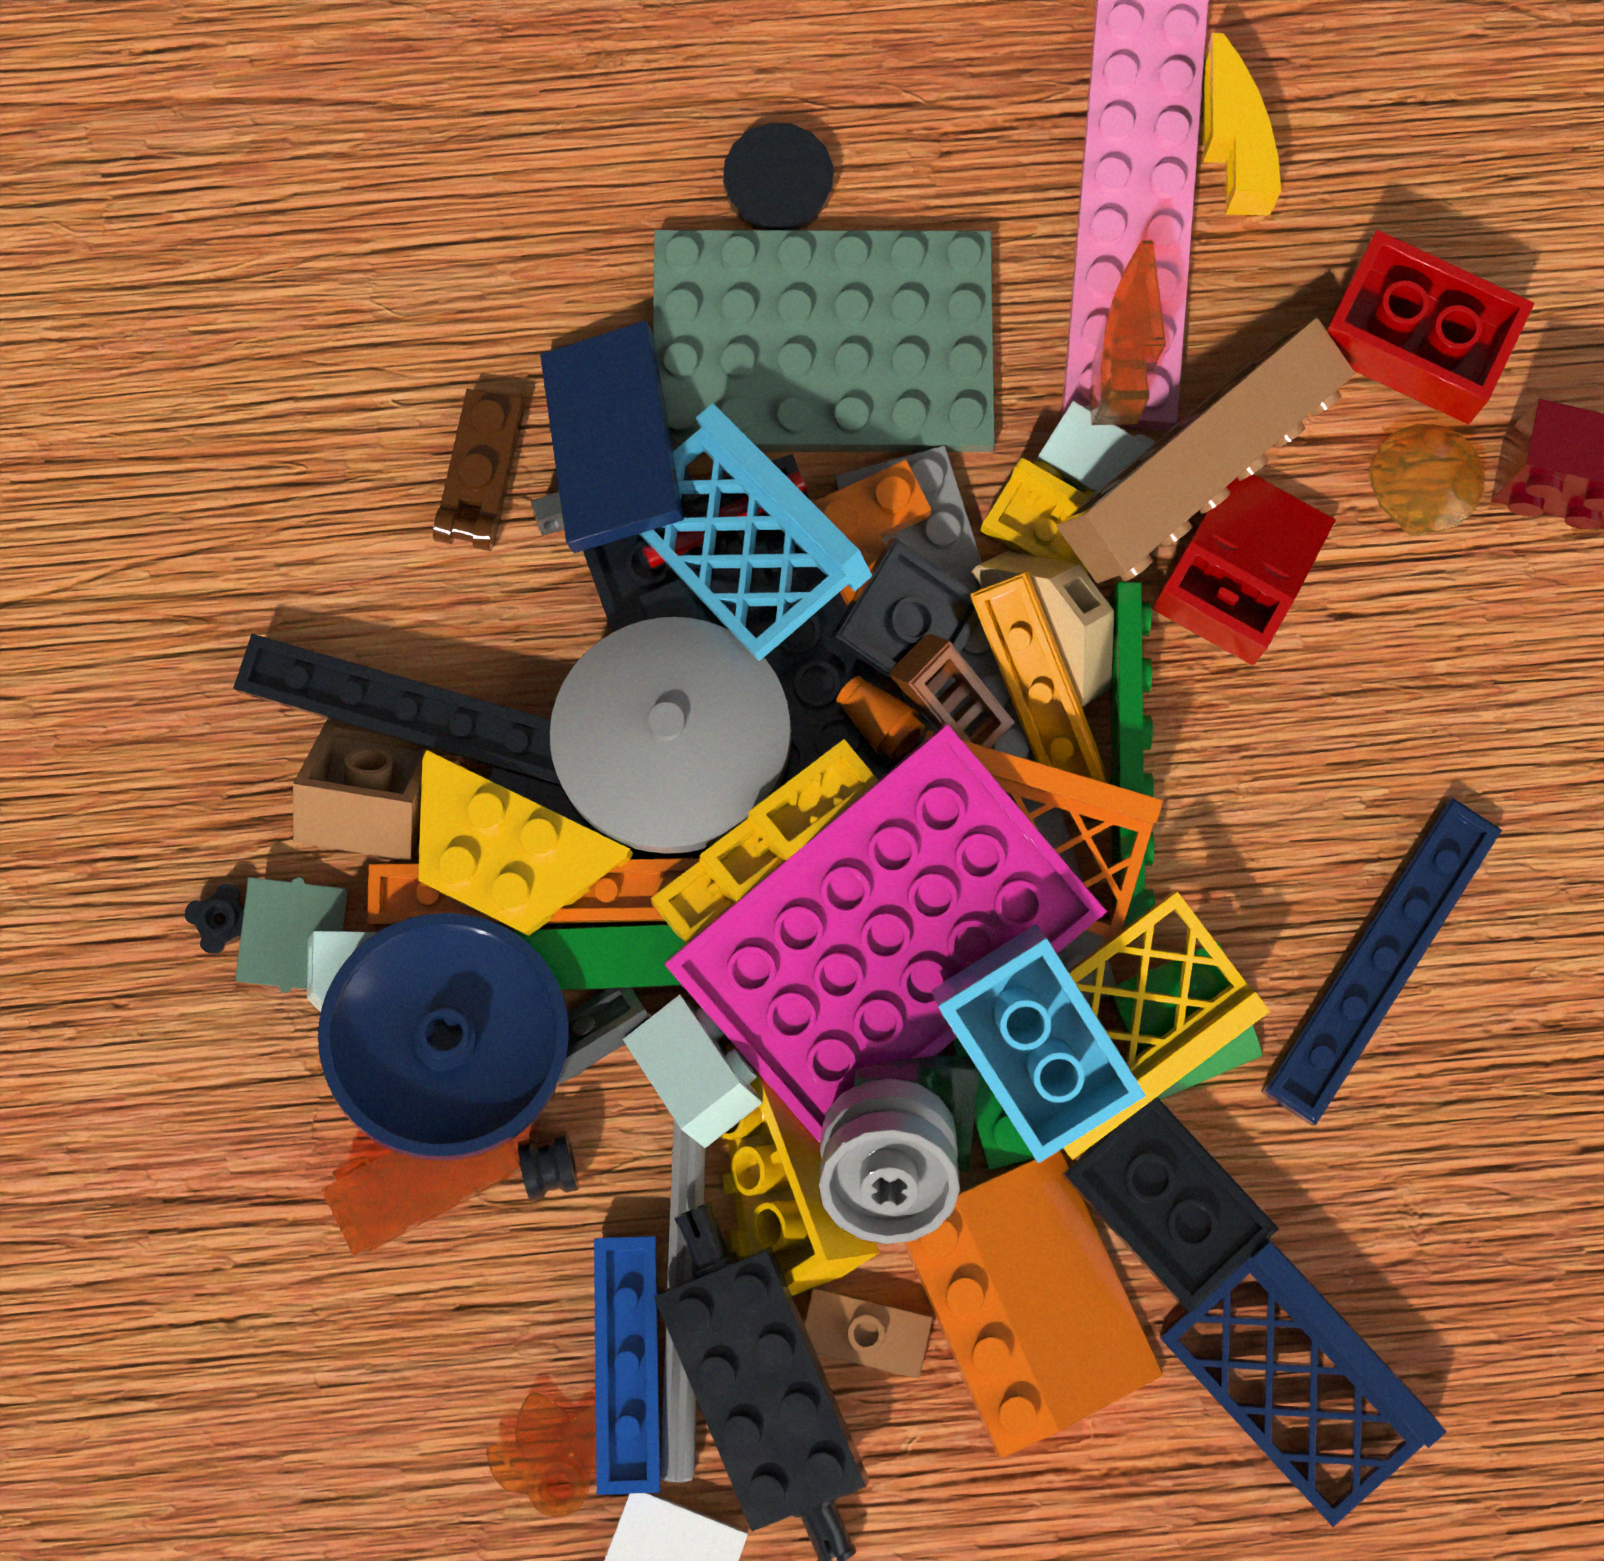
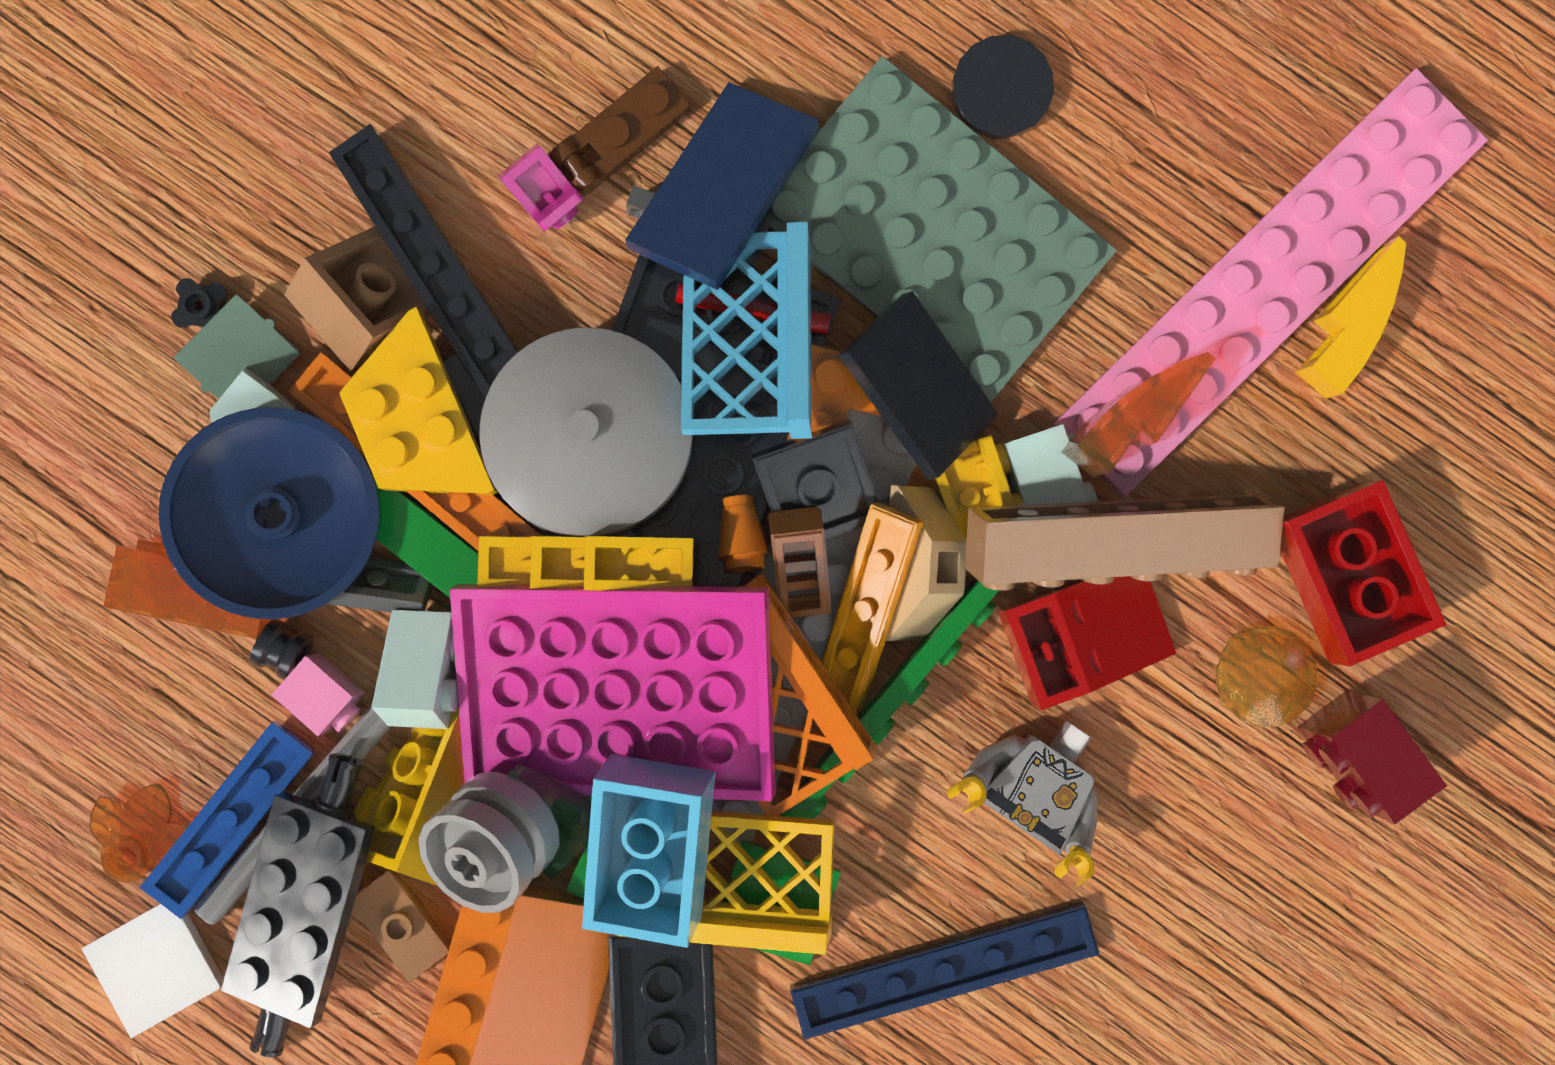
camera: 40 degrees right, 10 degrees up
(451, 570) = (541, 189): none -> dark pink bracket
(618, 1177) = (320, 695): none -> bright pink brick
(924, 465) = (919, 385): none -> black tile
(1328, 729) = (1039, 793): none -> light grey torso

